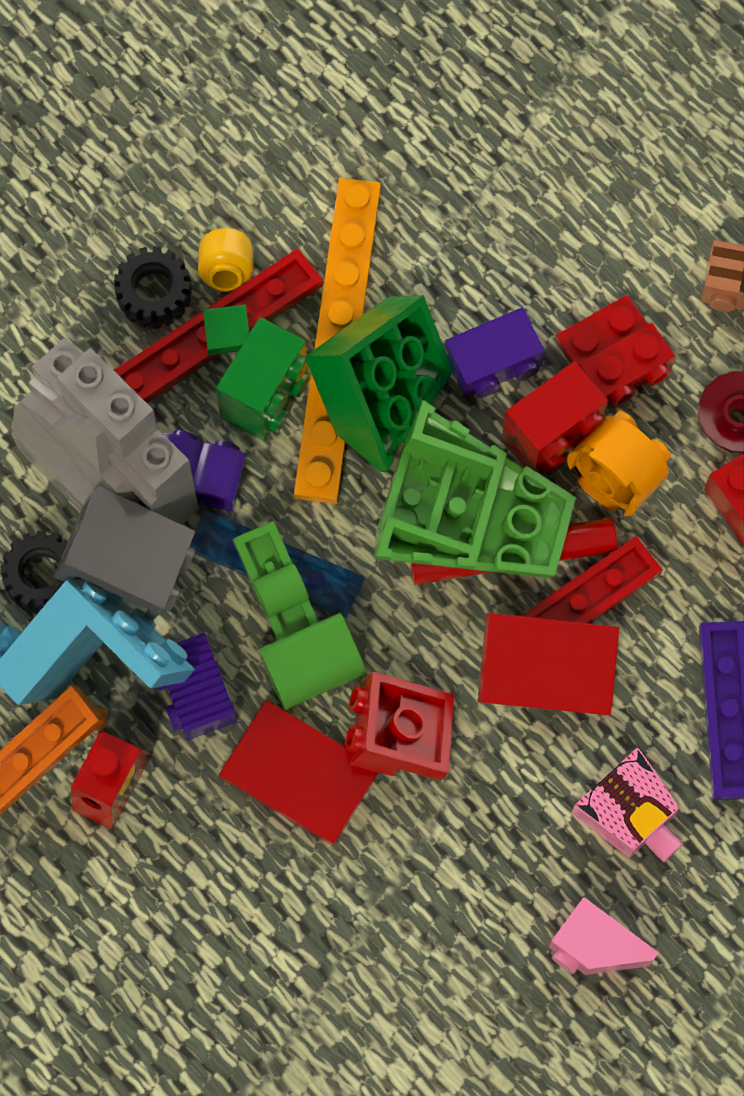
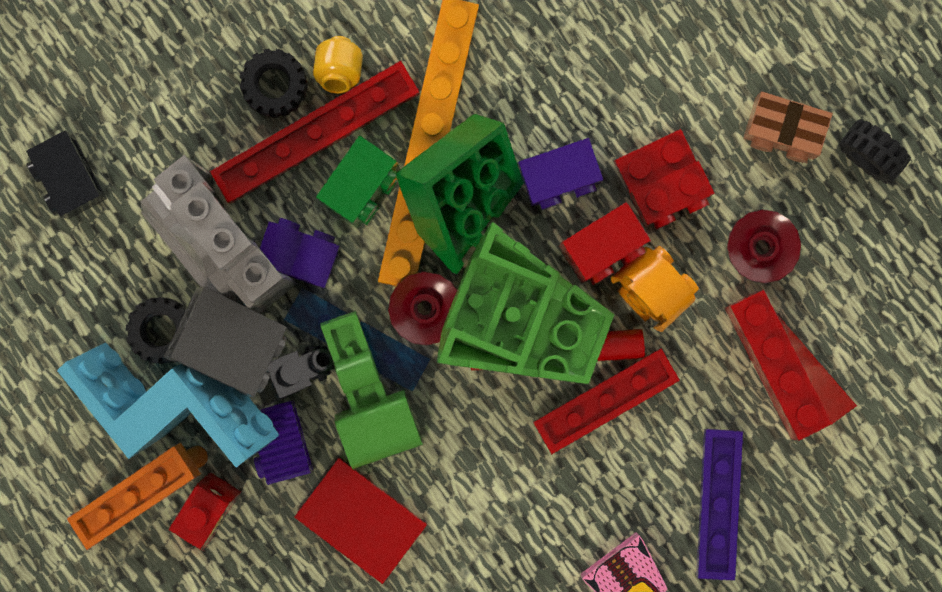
camera: 10 degrees right, 15 degrees up
(204, 603) = (293, 373): none -> black brick
(225, 329) = (332, 132): green tile -> none
(342, 496) = (404, 300): none -> dark red dish
(400, 727) = (446, 496): red plate -> none
(548, 664) = (574, 454): red tile -> none

